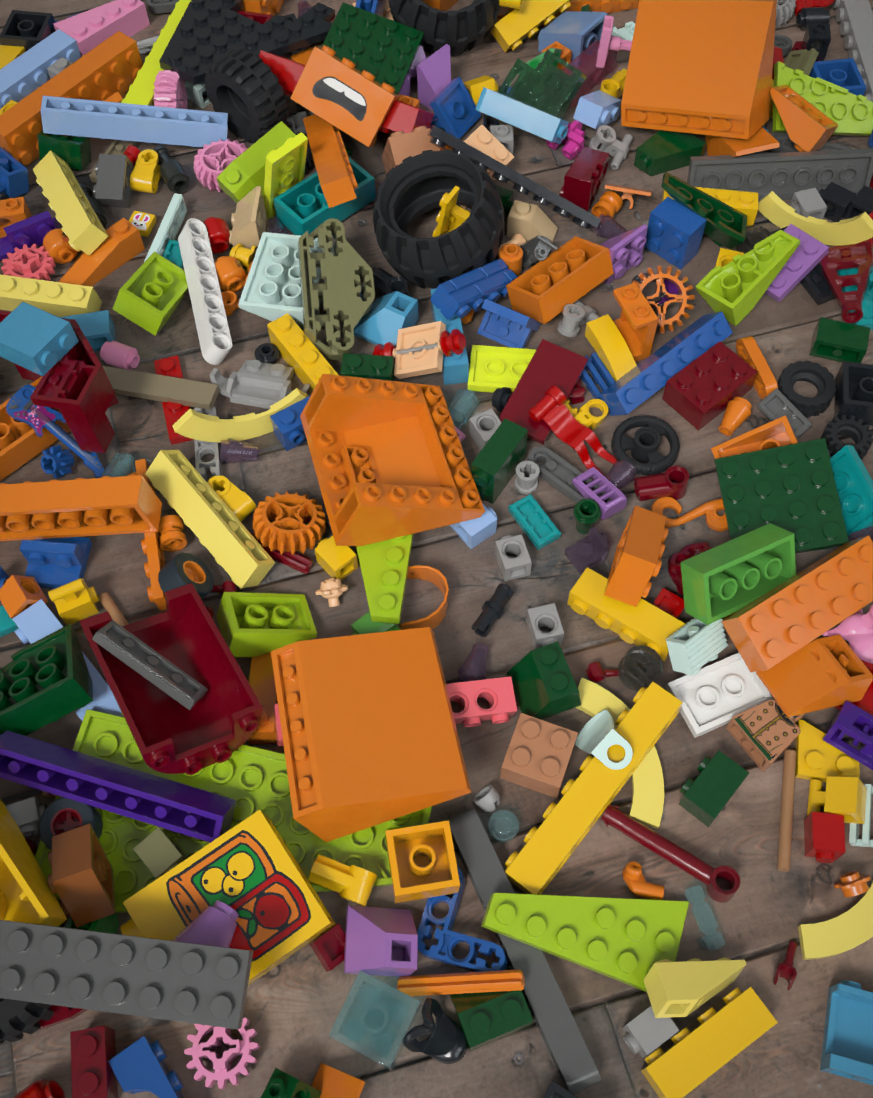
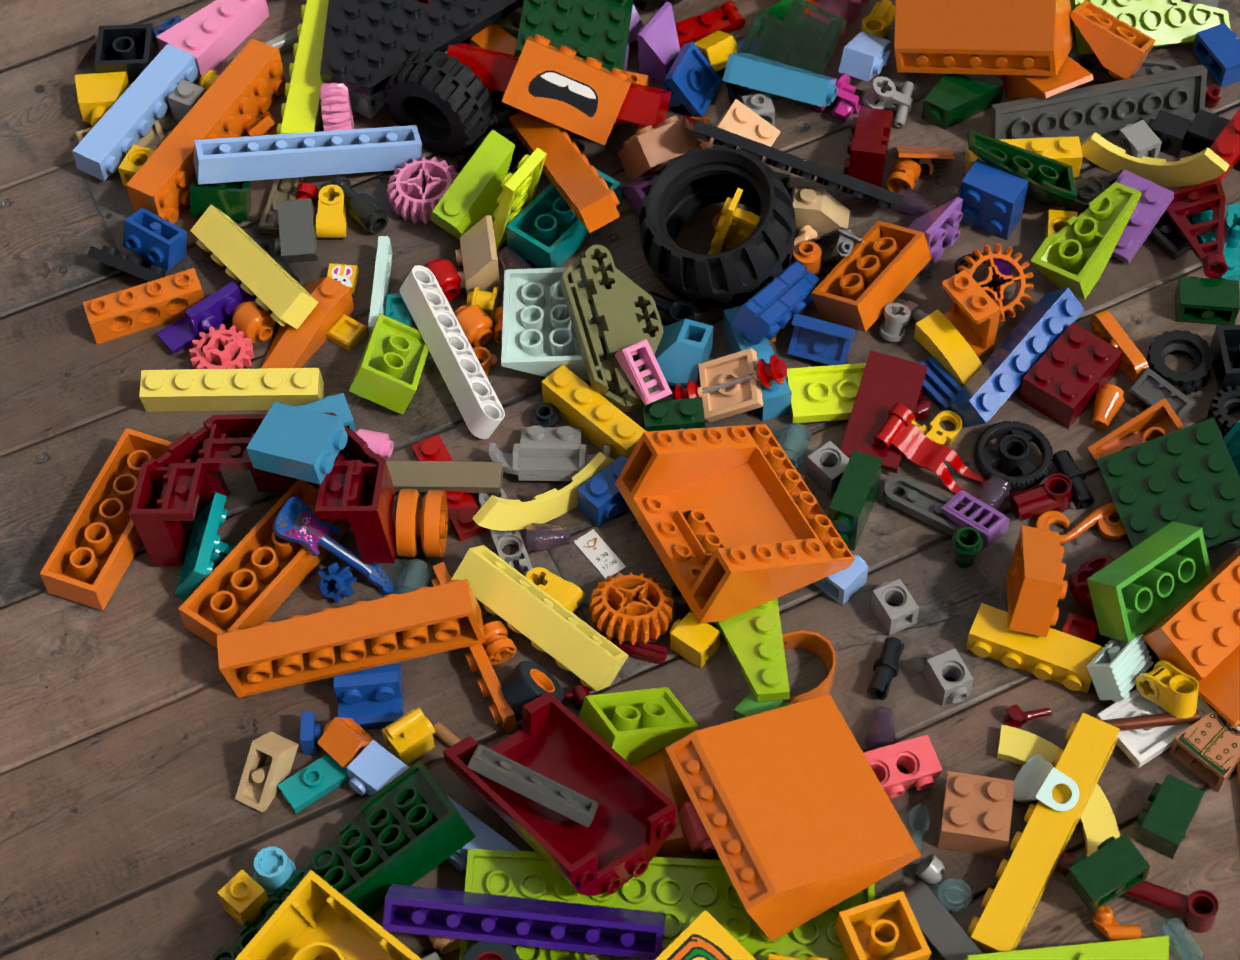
camera: 10 degrees left, 5 degrees down
(129, 264) = (347, 332): none -> yellow tile
(136, 424) = (421, 524): none -> orange wheel
(280, 473) = (599, 554): none -> white sticker
(332, 590) = (699, 676): light nougat plant -> none
(350, 308) = (630, 368): none -> bright pink slope
(486, 755) = (917, 824): none -> clear light blue piece
(496, 69) = (708, 23): none -> red plate
(501, 397) = (836, 427): black plate -> none
(527, 475) = (888, 513): light grey bush -> none
(534, 521) = (908, 562): teal plate -> none
(544, 683) = (965, 735): dark green slope -> none
(588, 551) = (976, 585): clear purple bracket -> none
(640, 667) = (1063, 703): clear smoke wheel -> none
(643, 833) = (1107, 872): none -> dark green brick
(695, 484) = (1080, 491): none -> black pin
(716, 698) = (1150, 721): none -> copper bar
(737, 673) = (1171, 689): none -> yellow piece

